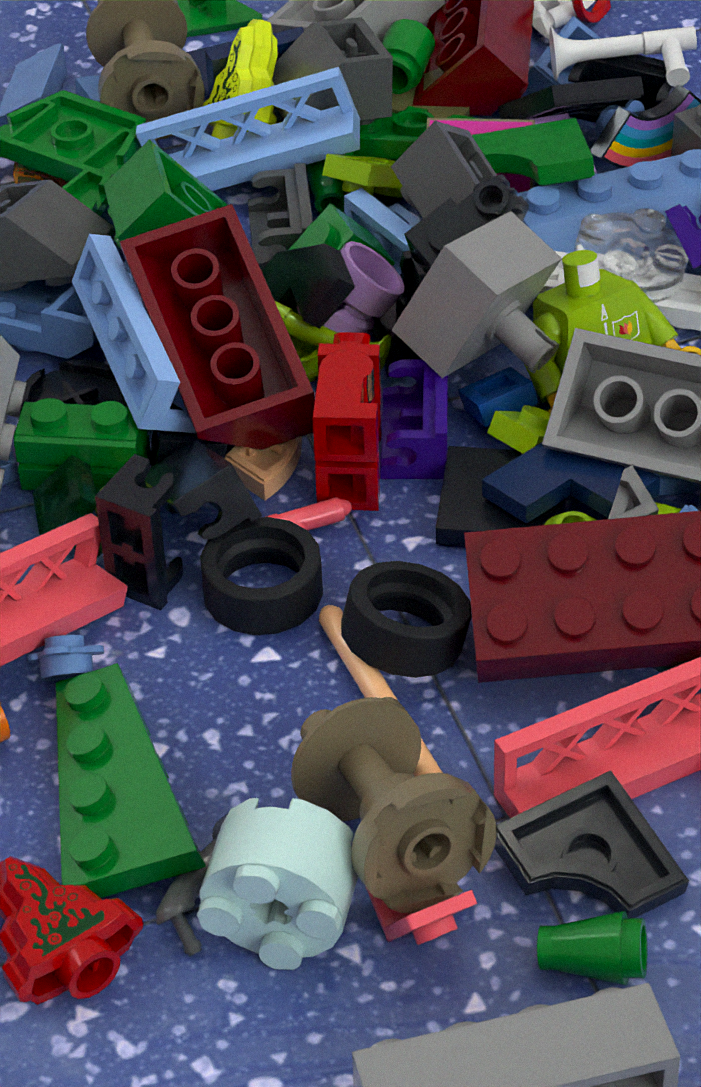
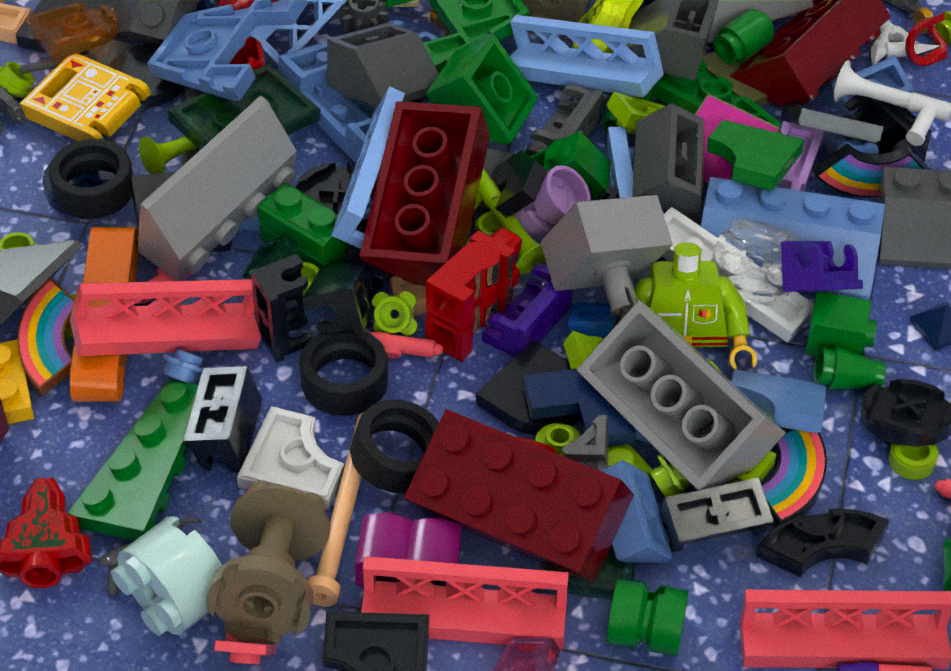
camera: 30 degrees right, 5 degrees up
(166, 685) = (223, 416): none -> black hinge
(271, 697) = (289, 457): none -> white tile
(274, 472) = (403, 304): none -> lime plate
(453, 220) = (653, 180): black brick -> none
(493, 710) = (401, 538): none -> magenta brick

